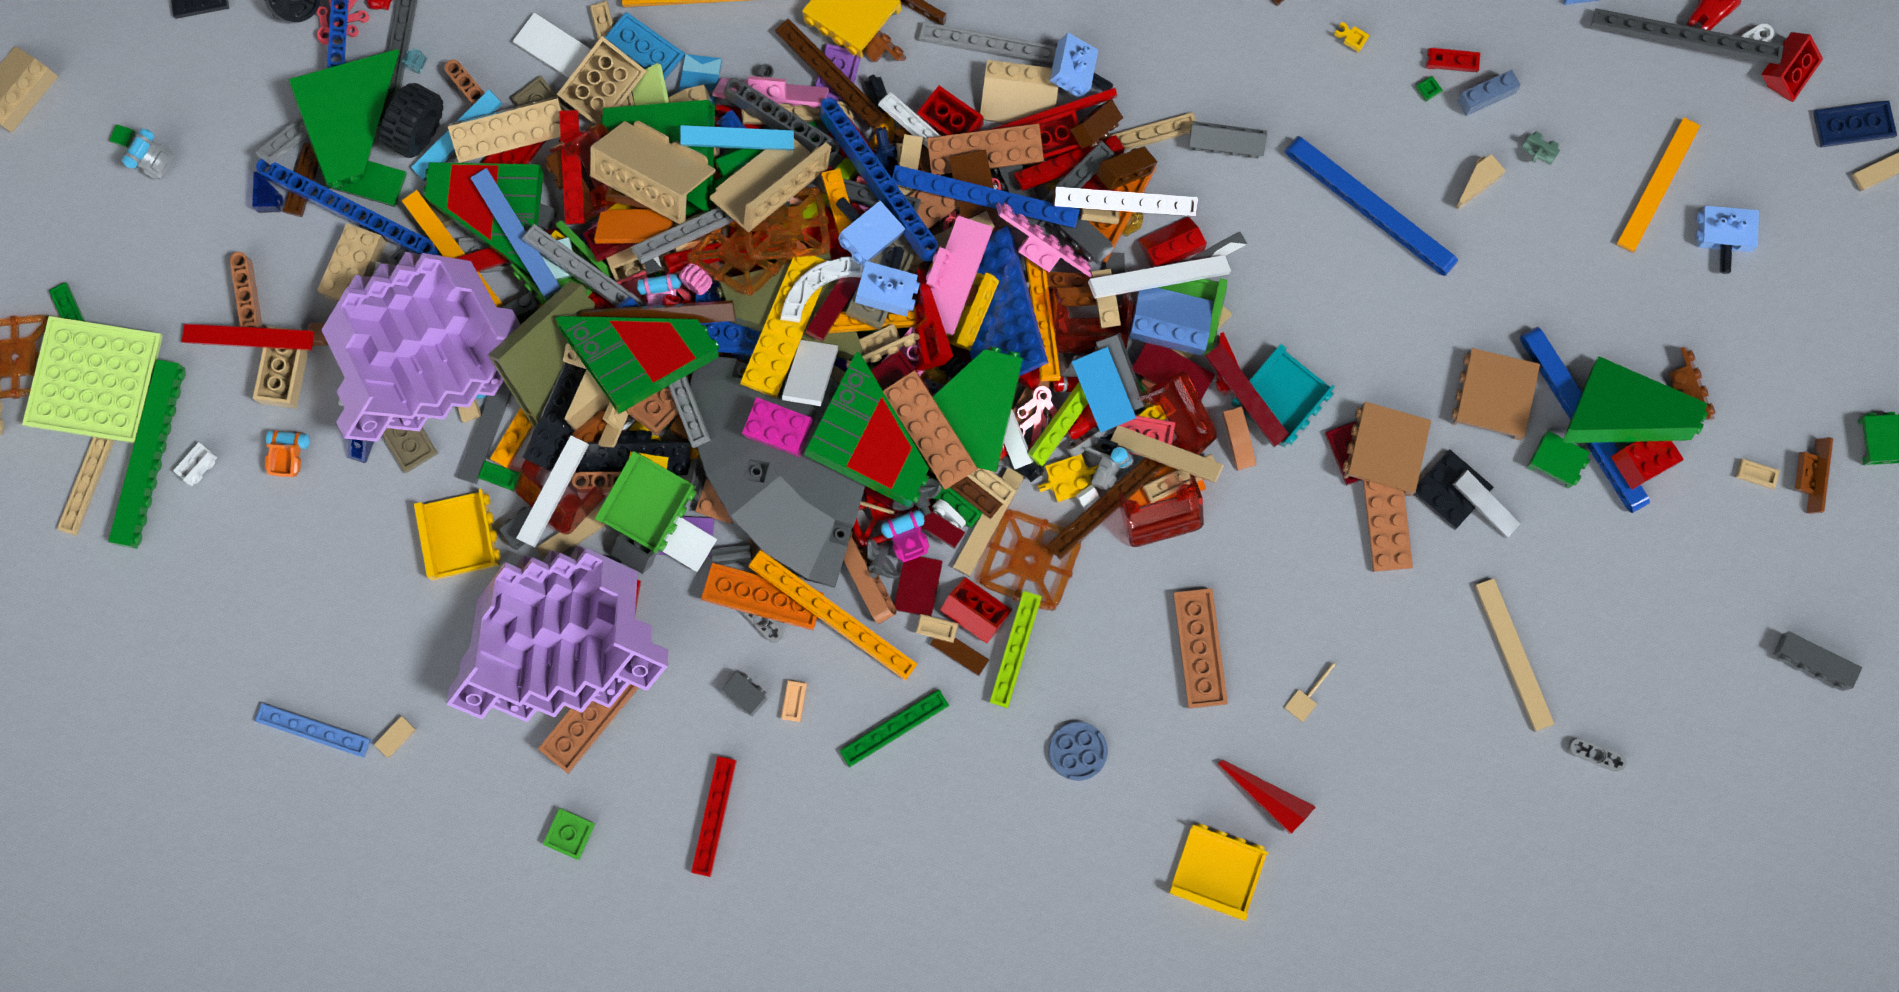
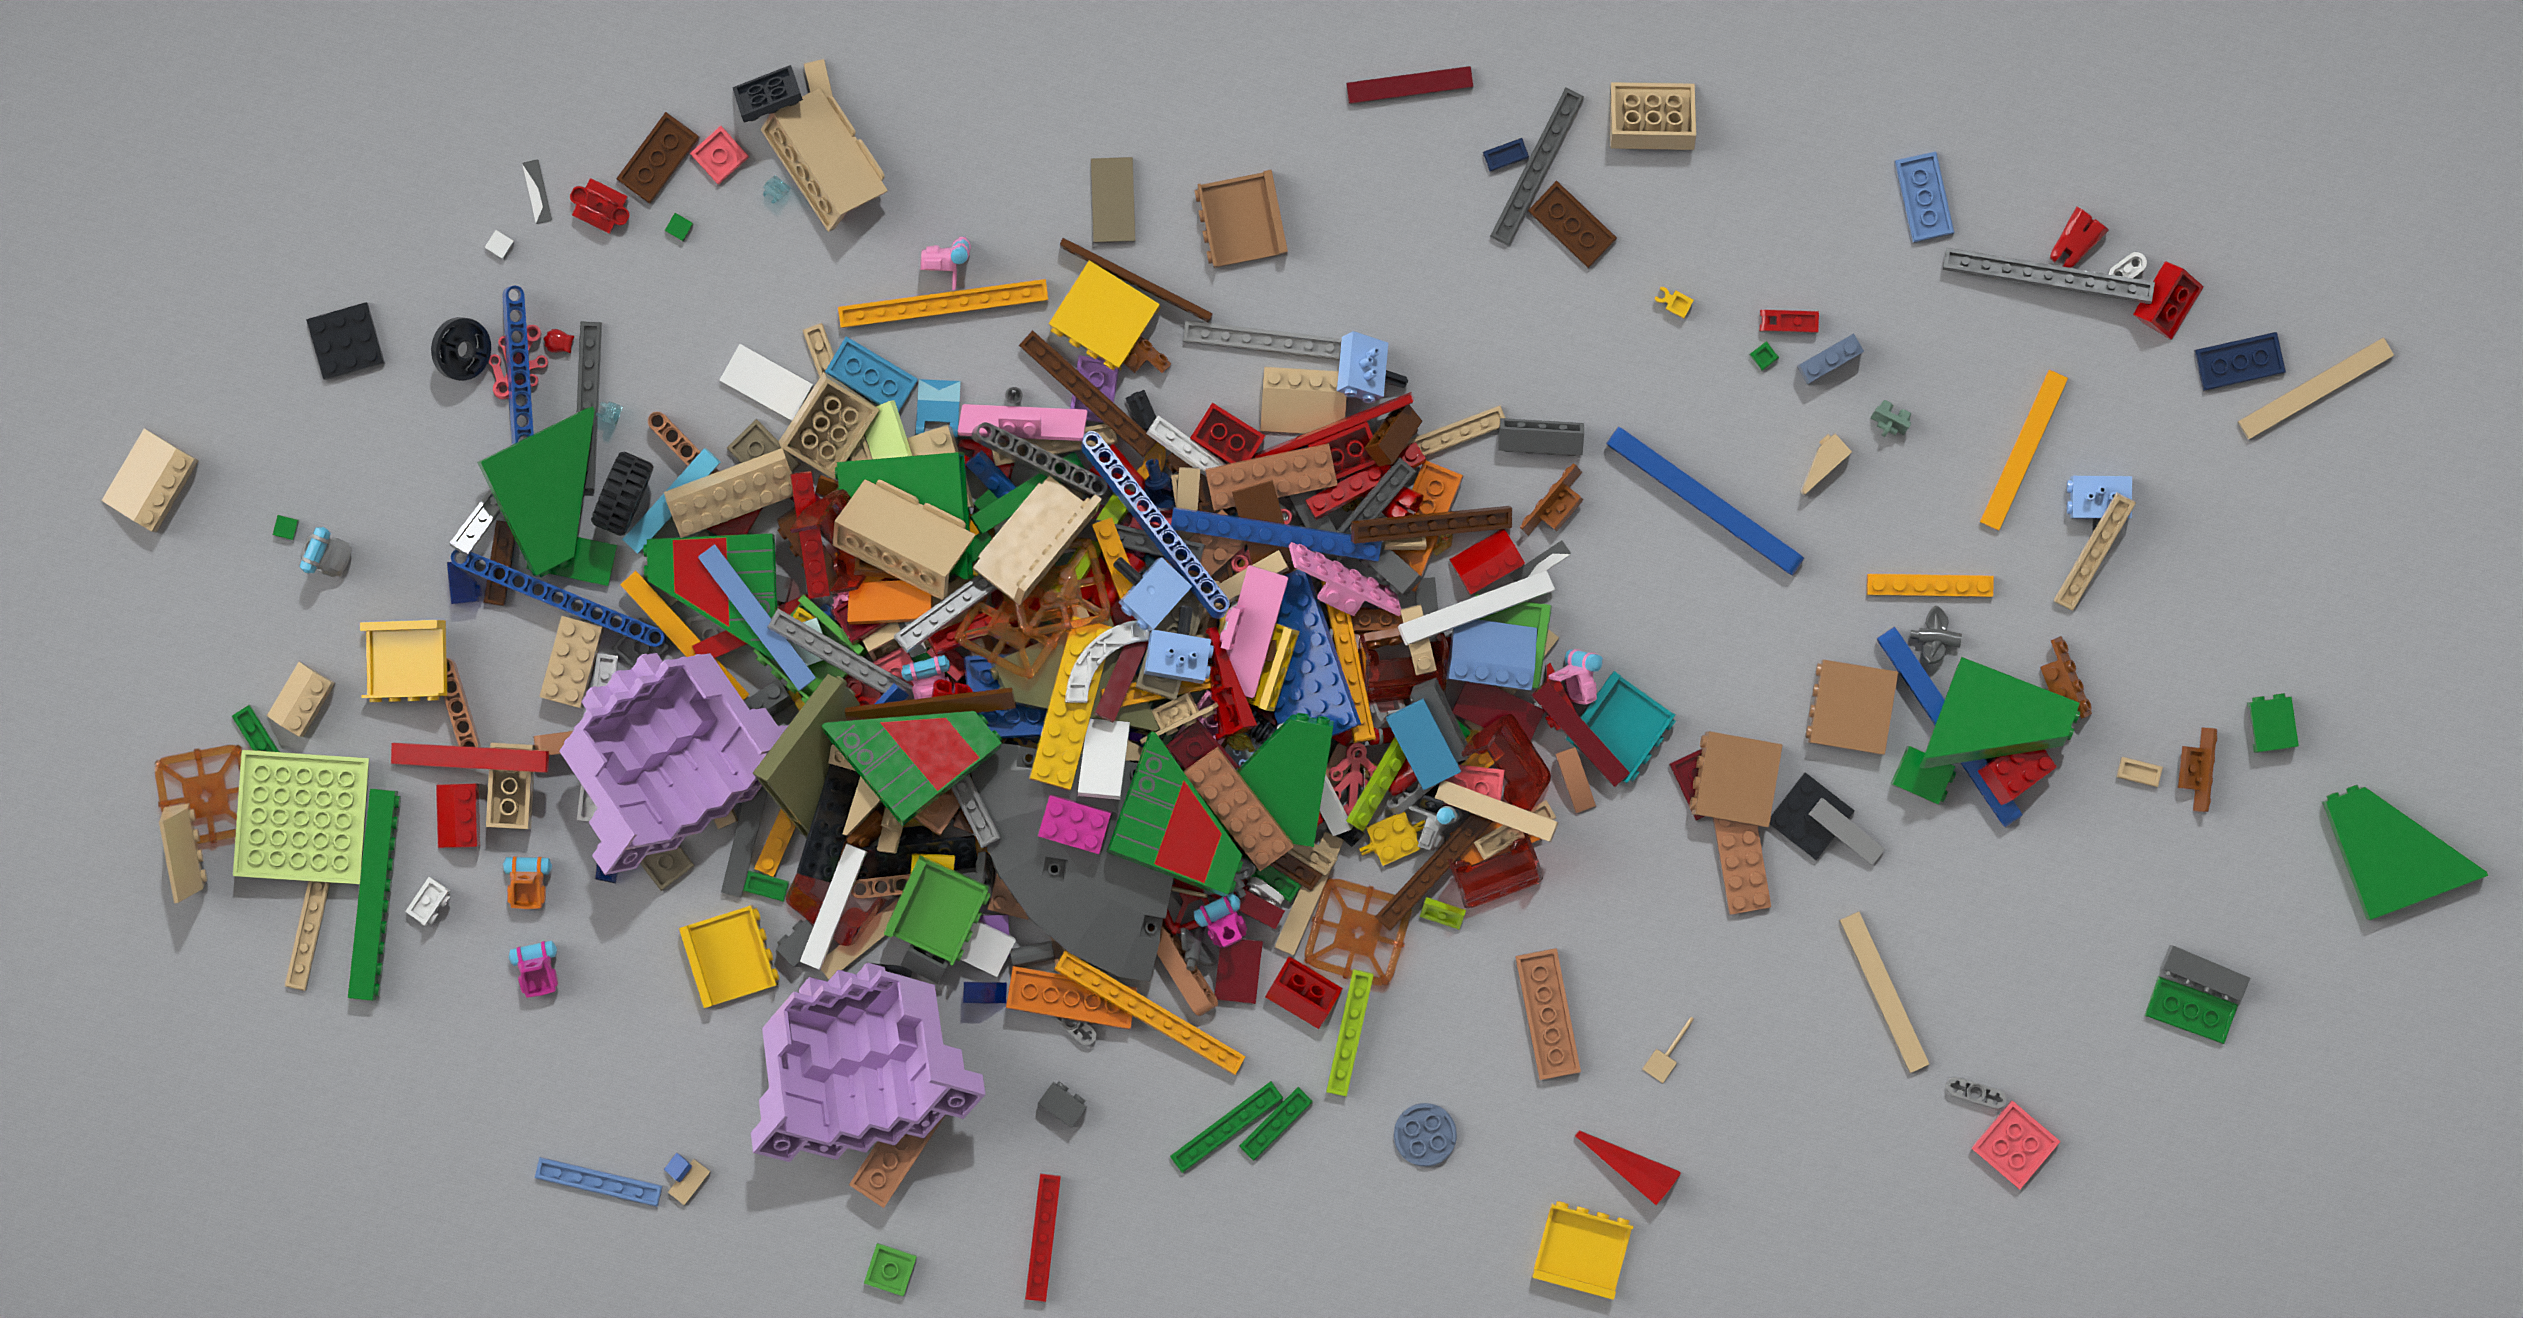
camera: 15 degrees left, 10 degrees up
(112, 282) = (300, 699): none -> tan slope
(206, 250) = (405, 660): none -> yellow panel
(234, 391) = (458, 815): none -> red slope
(282, 530) = (535, 968): none -> dark pink piece
(386, 722) = (678, 1167): none -> tile
(683, 585) = (984, 992): none -> clear blue slope
(695, 279) = (966, 661): bright pink gear -> none
(736, 138) = (994, 493): medium azure tile -> none
(794, 701) = (1115, 1106): light nougat tile -> none
(937, 628) = (1263, 1016): tan tile -> none
(940, 729) = (1275, 1123): none -> green tile
(962, 654) = (1289, 1039): reddish brown tile -> none
(1088, 497) = (1415, 859): white tile -> none
(1109, 548) = (1442, 913): none -> lime plate
(1126, 168) = (1430, 487): reddish brown brick -> none
(1237, 197) = (1557, 504): none -> dark orange bracket
(1249, 345) = (1579, 675): none -> bright pink piece
(1570, 294) = (1930, 585): none -> light orange plate
(1574, 338) = (1936, 636): none -> dark grey plant
(1634, 807) = (2015, 1144): none -> coral plate
(1723, 272) = (2094, 551): none -> tan tile
(1802, 695) = (2191, 1010): none -> green tile

